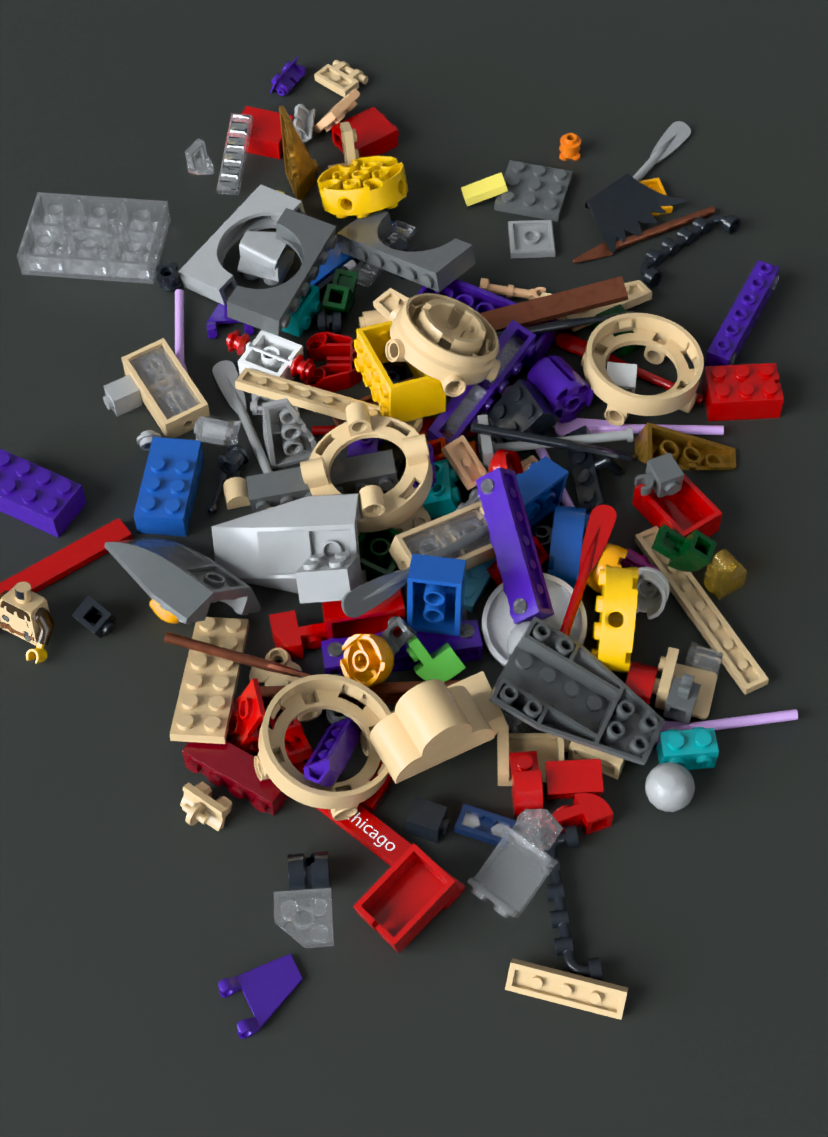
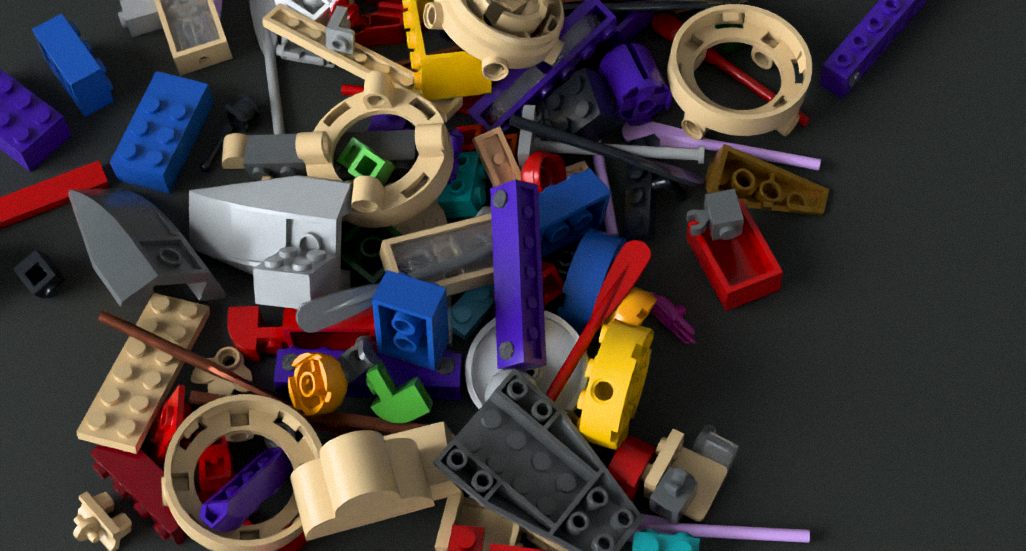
camera: 15 degrees right, 5 degrees up
(78, 443) = (74, 64): none -> blue brick
(145, 439) = (153, 66): light grey plate -> none
(217, 430) = (230, 74): clear brick -> none
(285, 434) = (299, 92): light grey wedge -> none
(308, 384) = (339, 32): none -> light grey bracket
(354, 477) = (364, 161): none -> bright green brick
(623, 375) = (714, 81): white piece -> none
(651, 596) = (672, 353): white helmet -> none
(684, 553) = (725, 313): dark green brick -> none
(706, 618) = (731, 387): tan plate -> none
(724, 574) = (768, 347): clear yellow brick -> none
(742, 392) = (855, 120): red piece -> none

